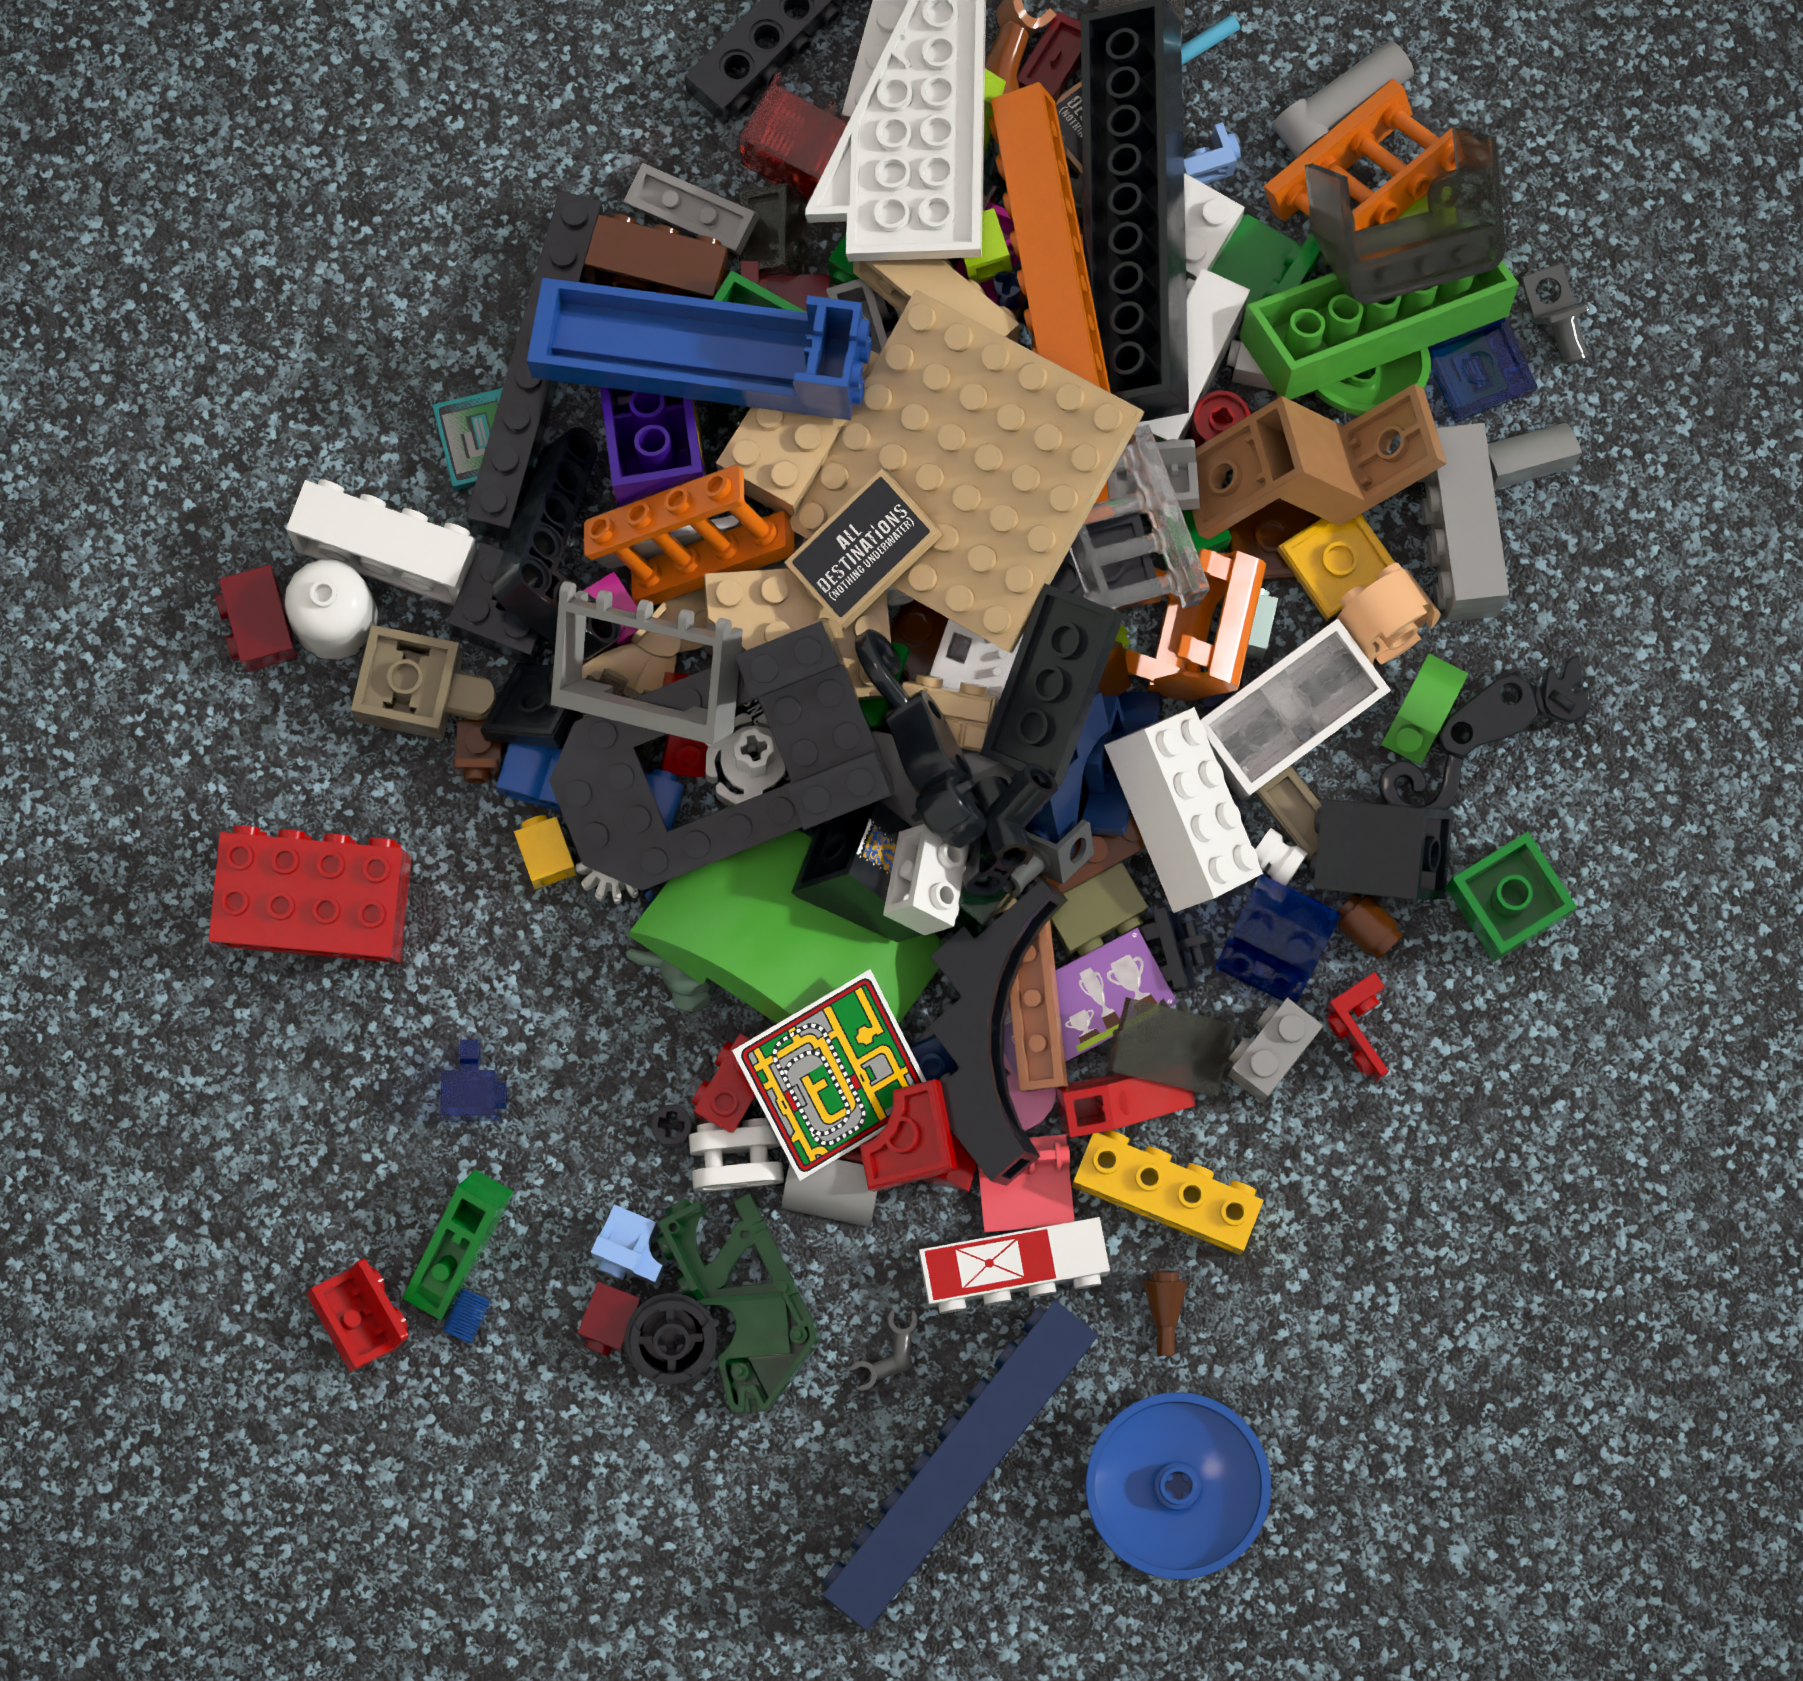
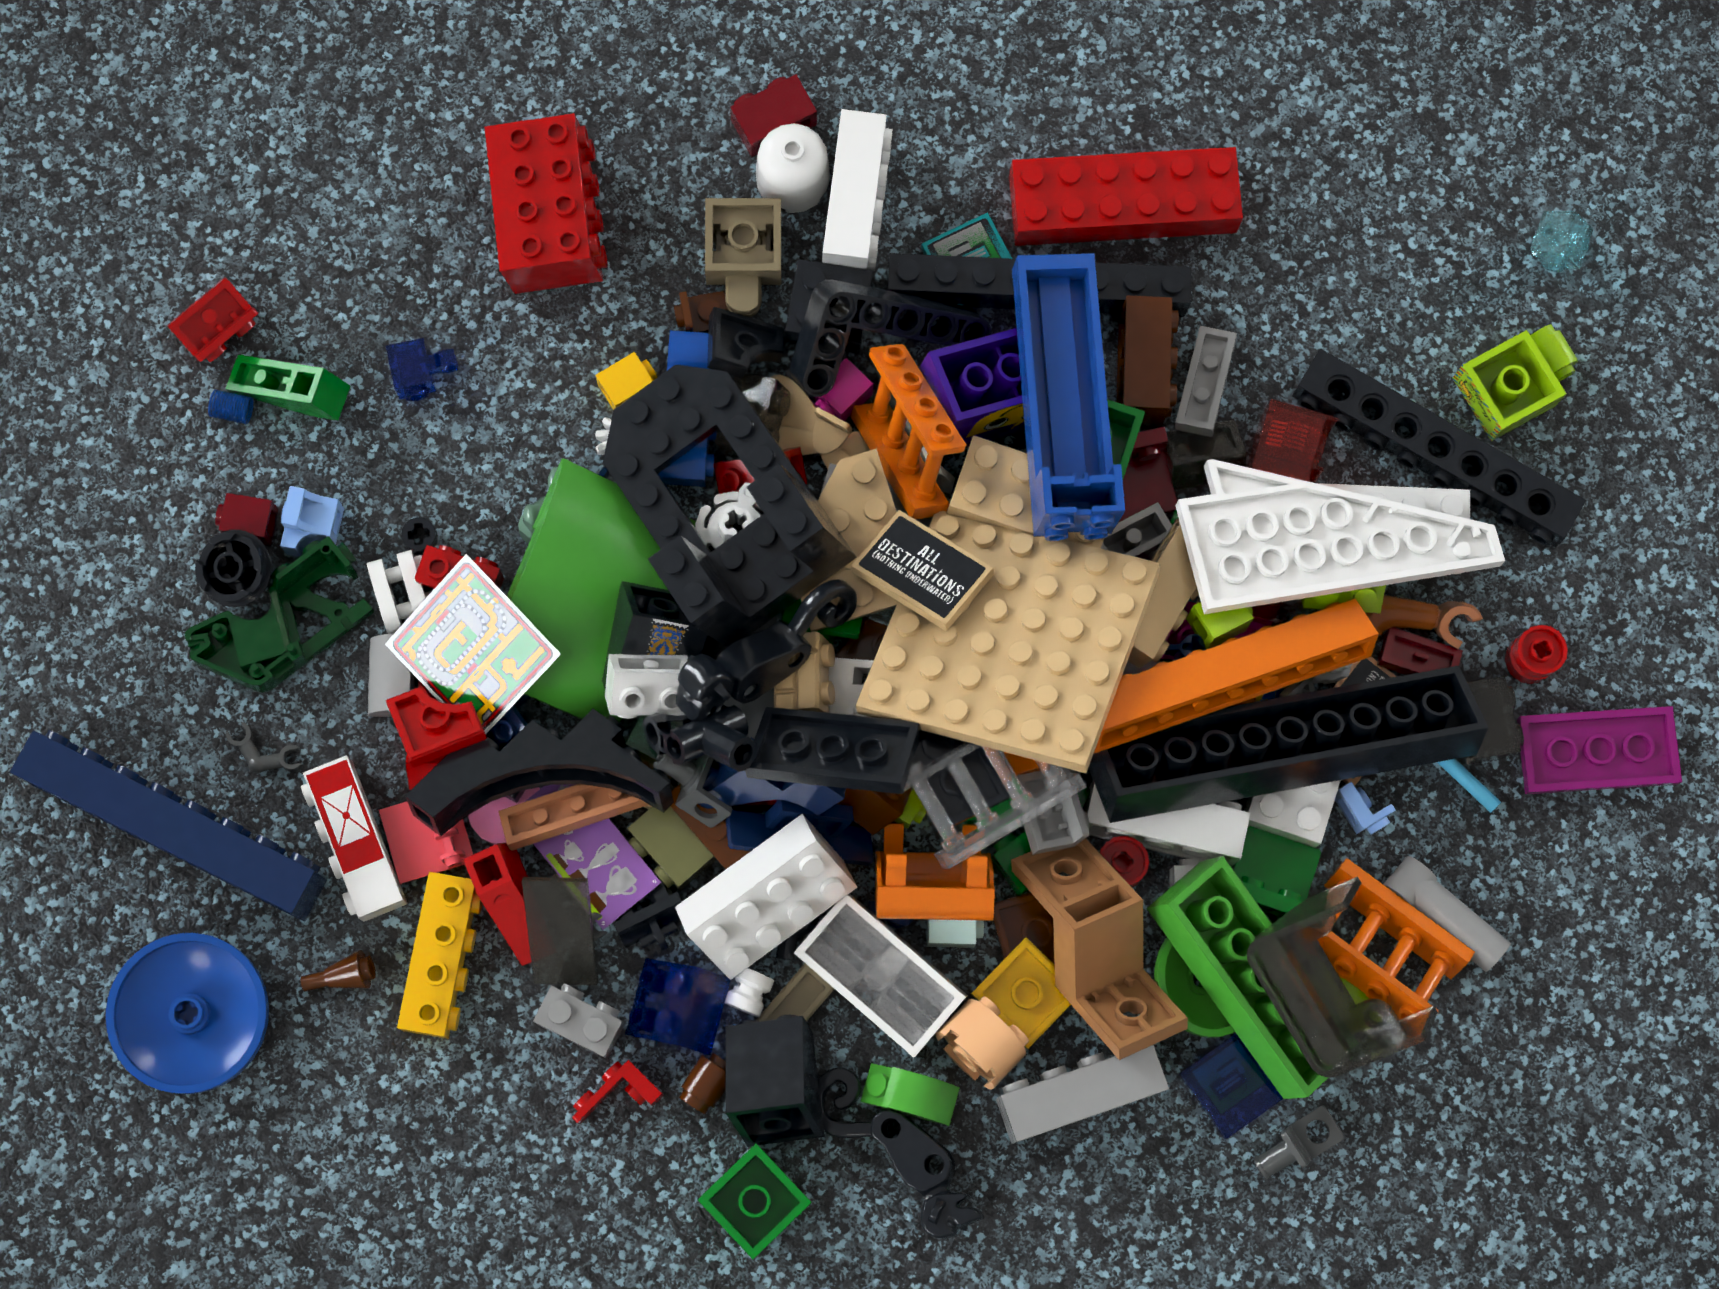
camera: 75 degrees right, 0 degrees up
(452, 247) = (1125, 196): none -> red brick
(598, 698) = (751, 384): light grey hinge -> none
(1533, 455) = (1161, 1142): light grey brick -> none

